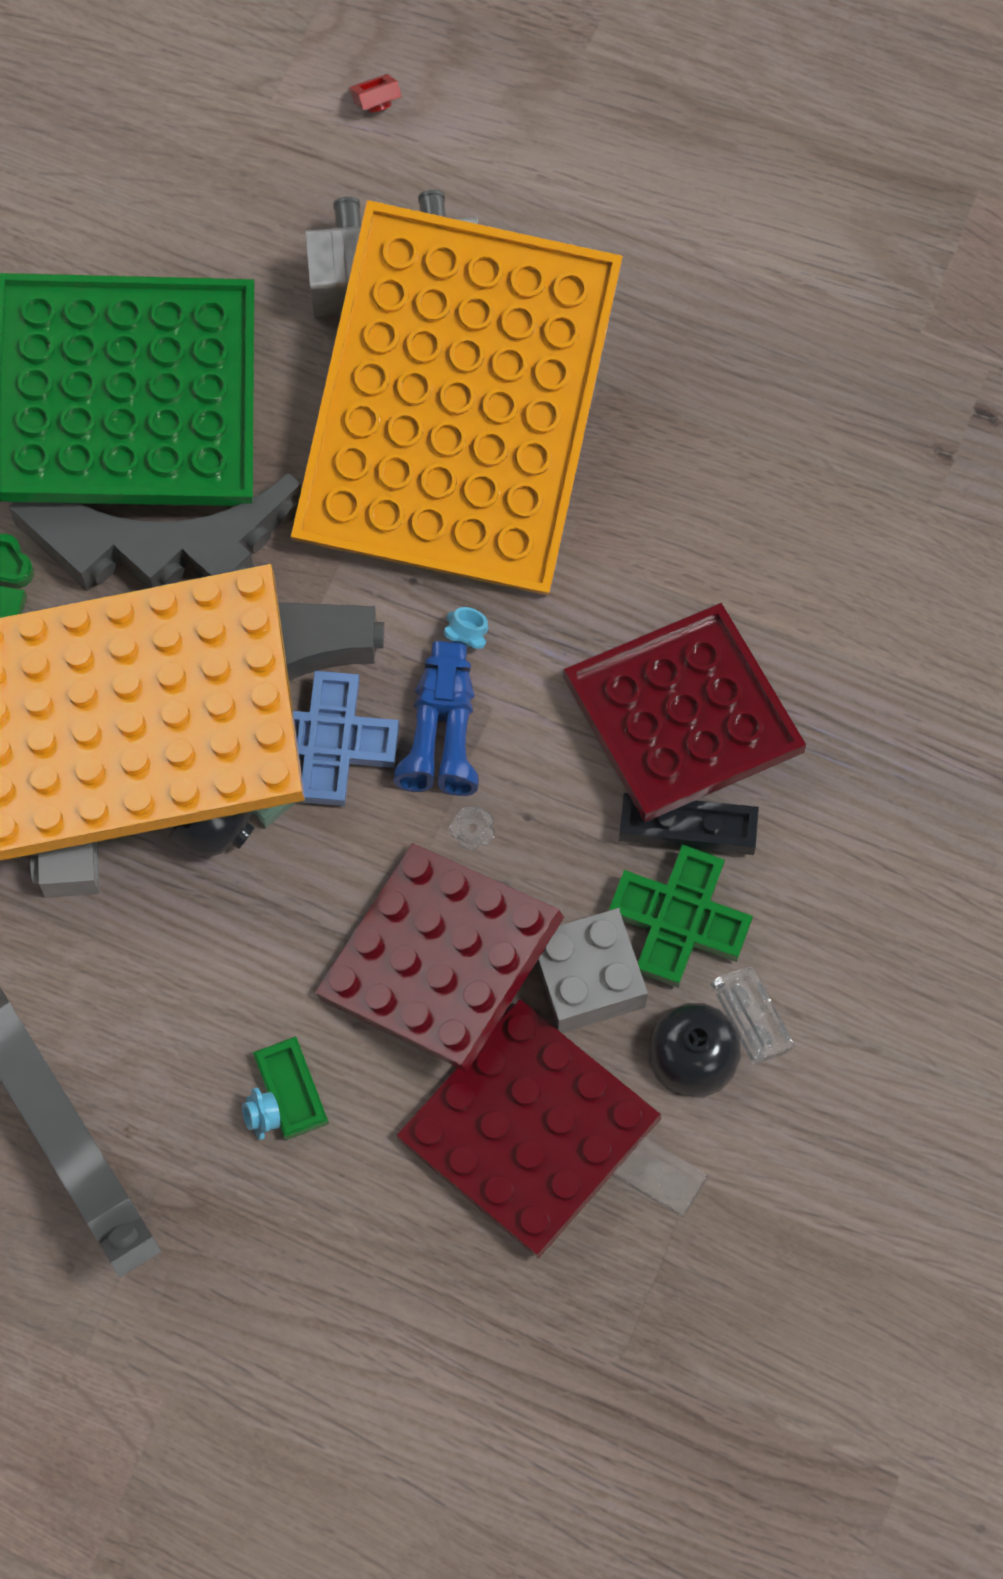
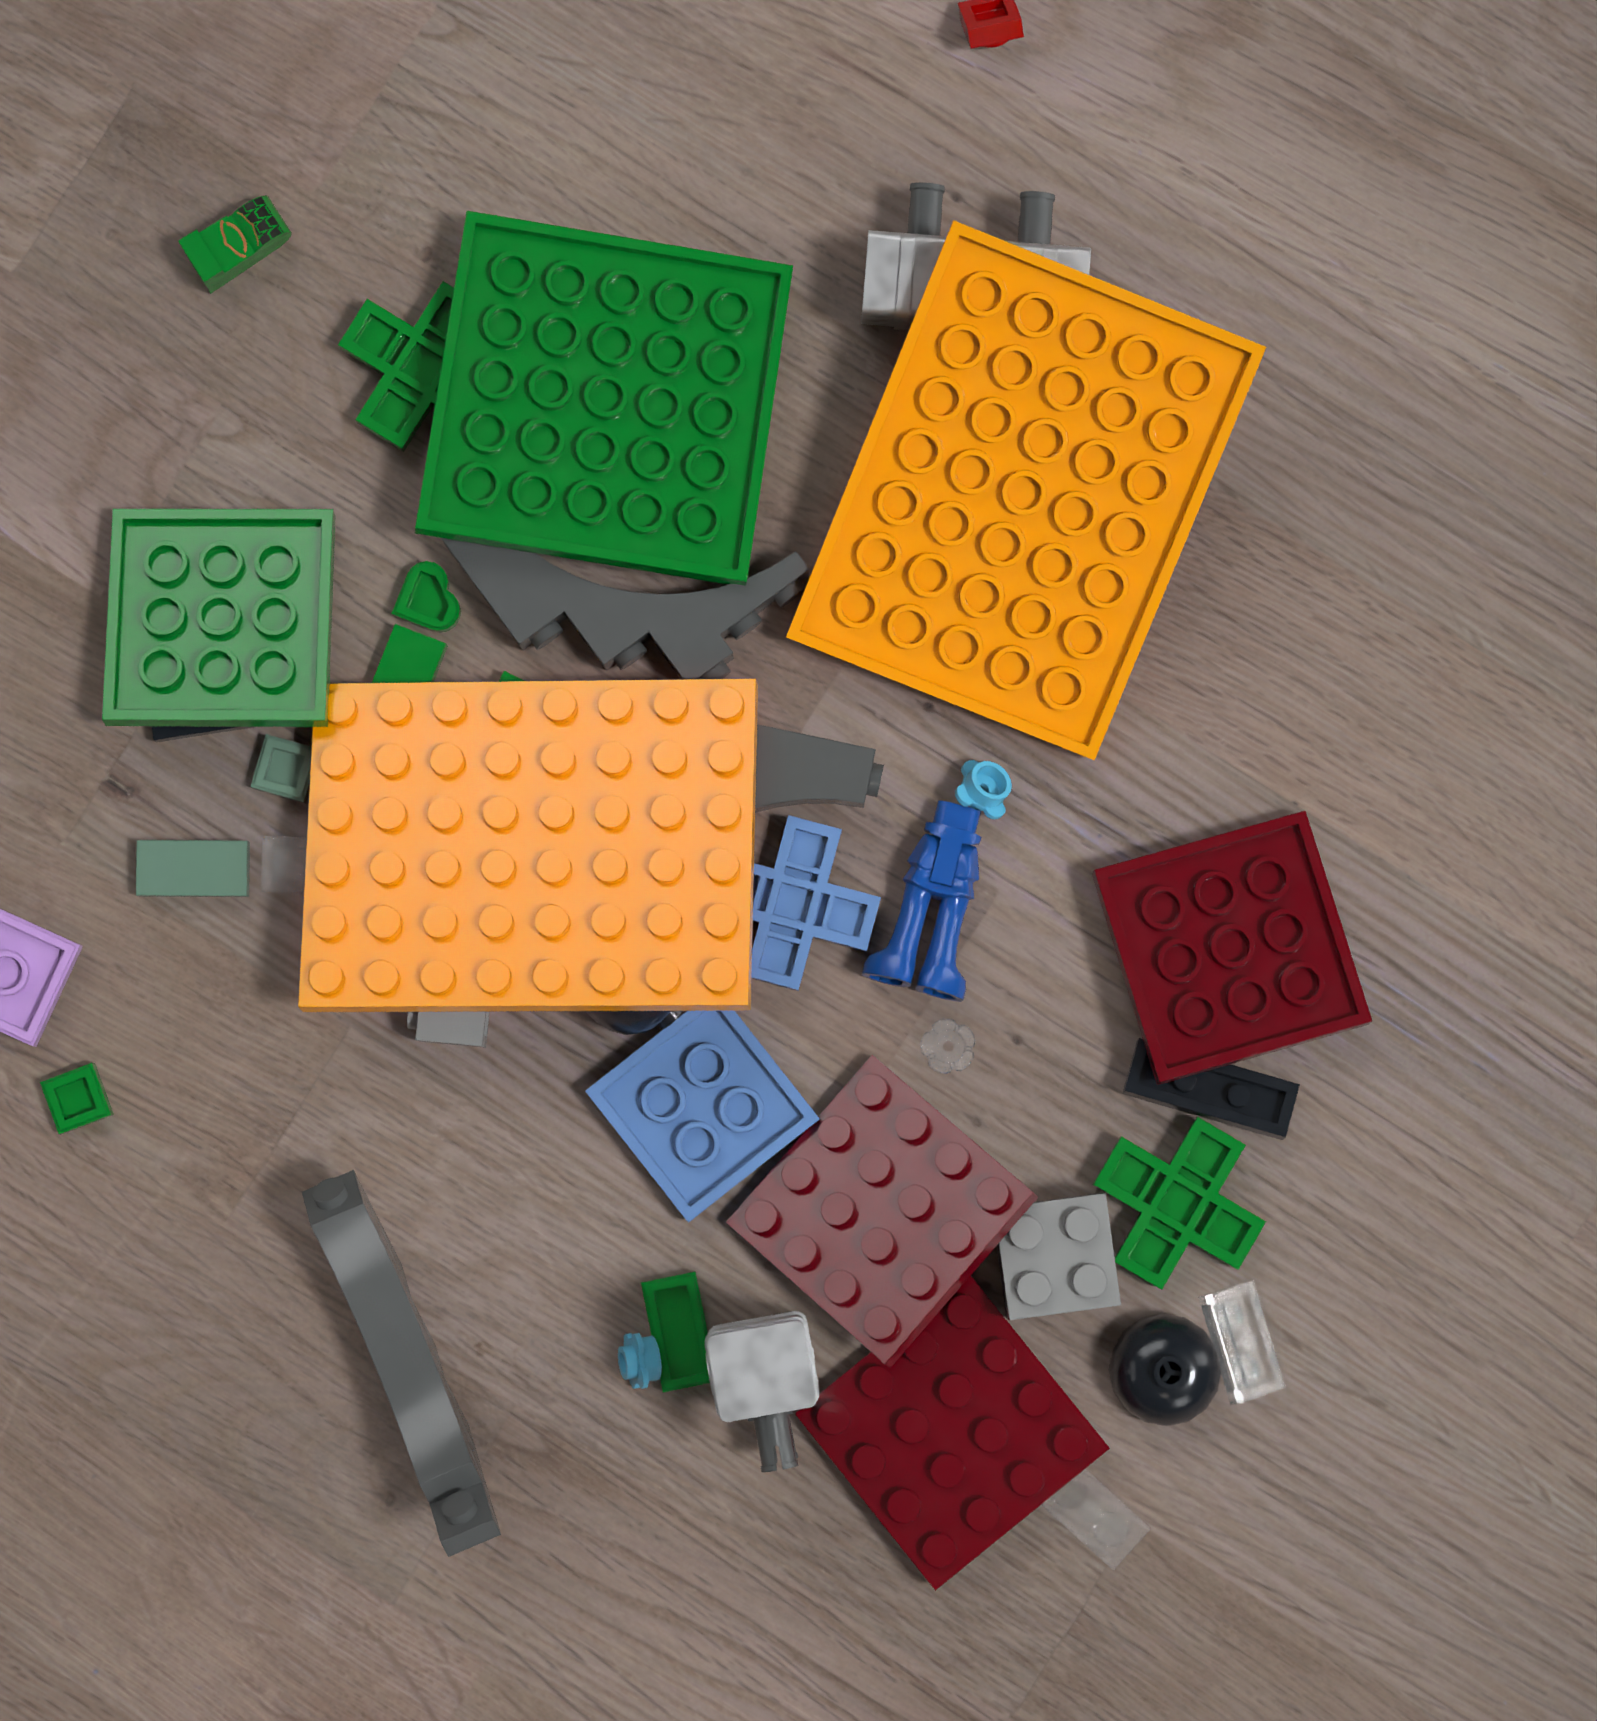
camera: 10 degrees right, 15 degrees up
(281, 904) = (702, 1107): none -> medium blue plate
(362, 1085) = (763, 1374): none -> flat silver piece

